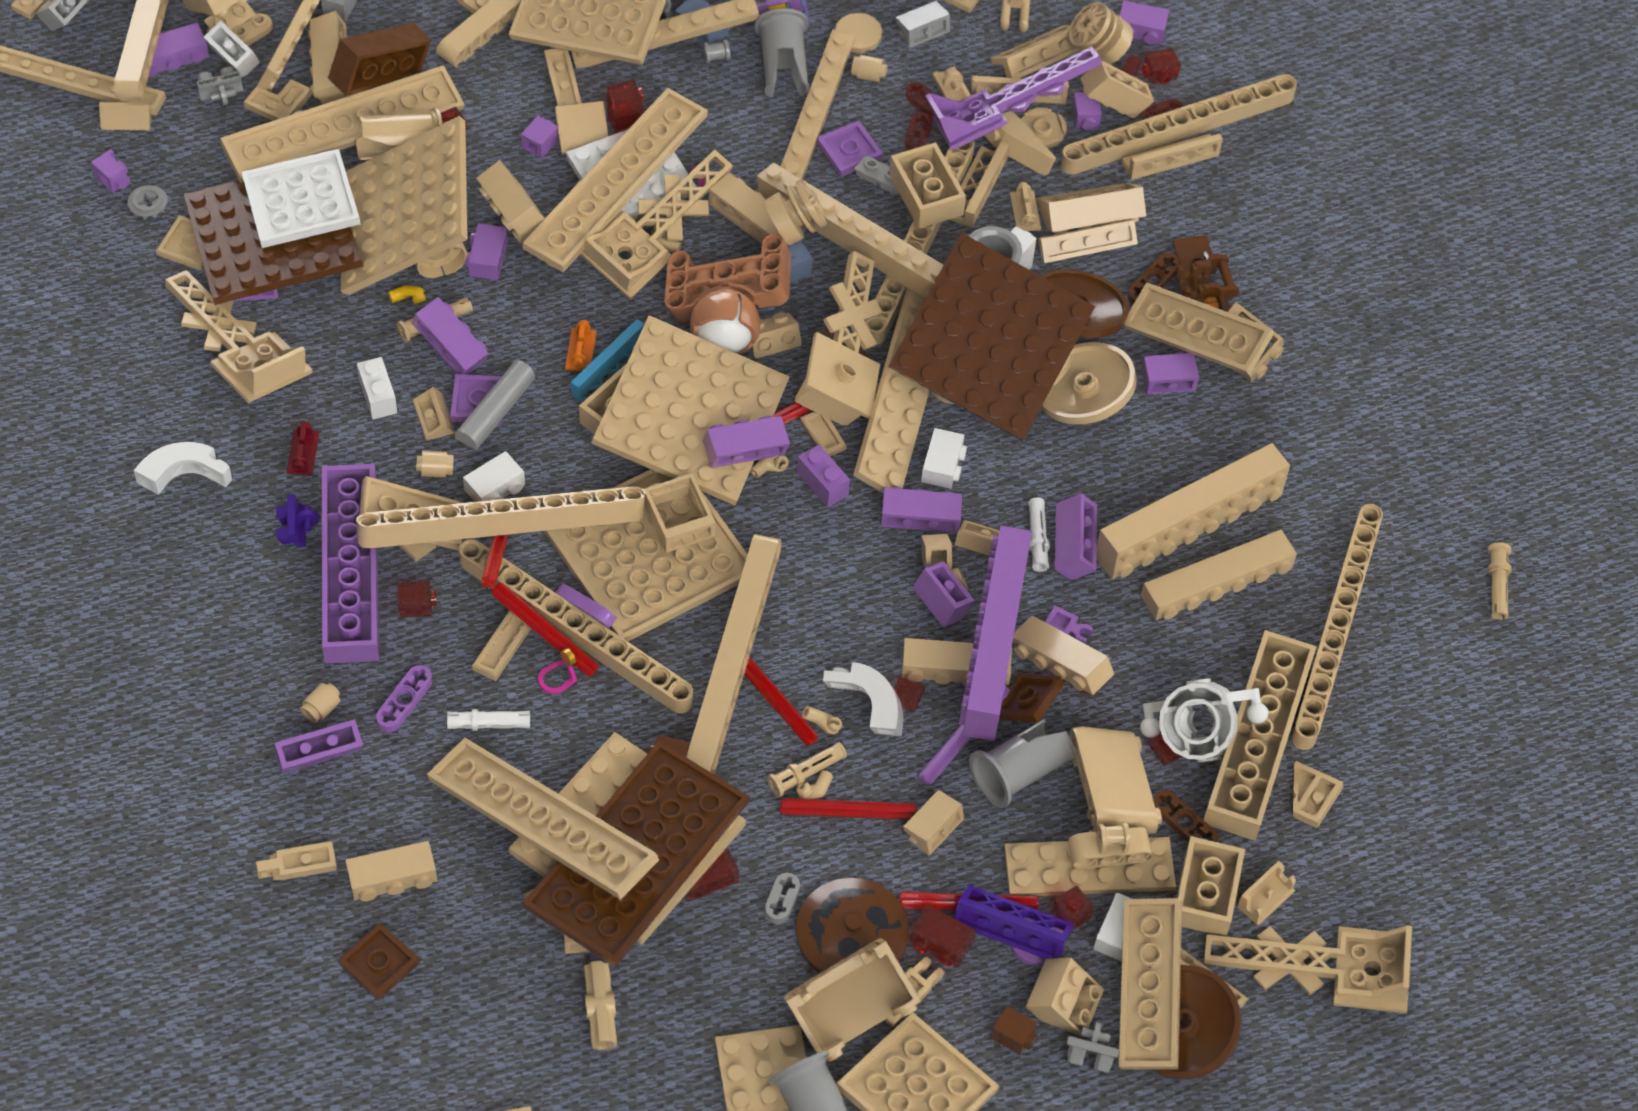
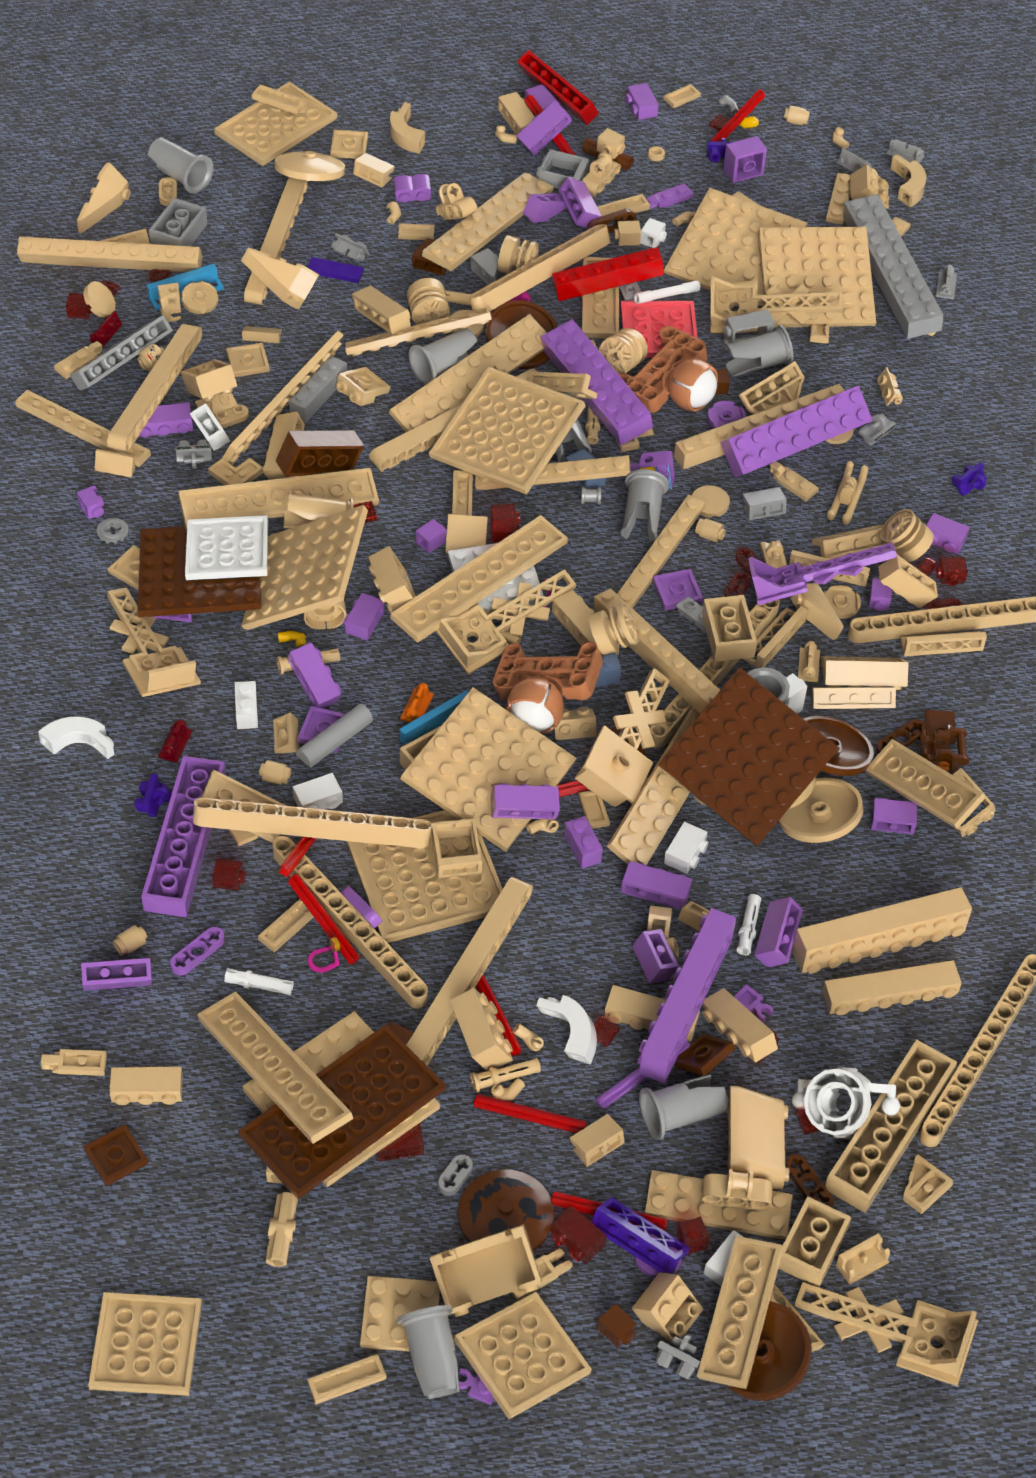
camera: 15 degrees right, 5 degrees down
(769, 721) = (482, 1029): none -> tan brick

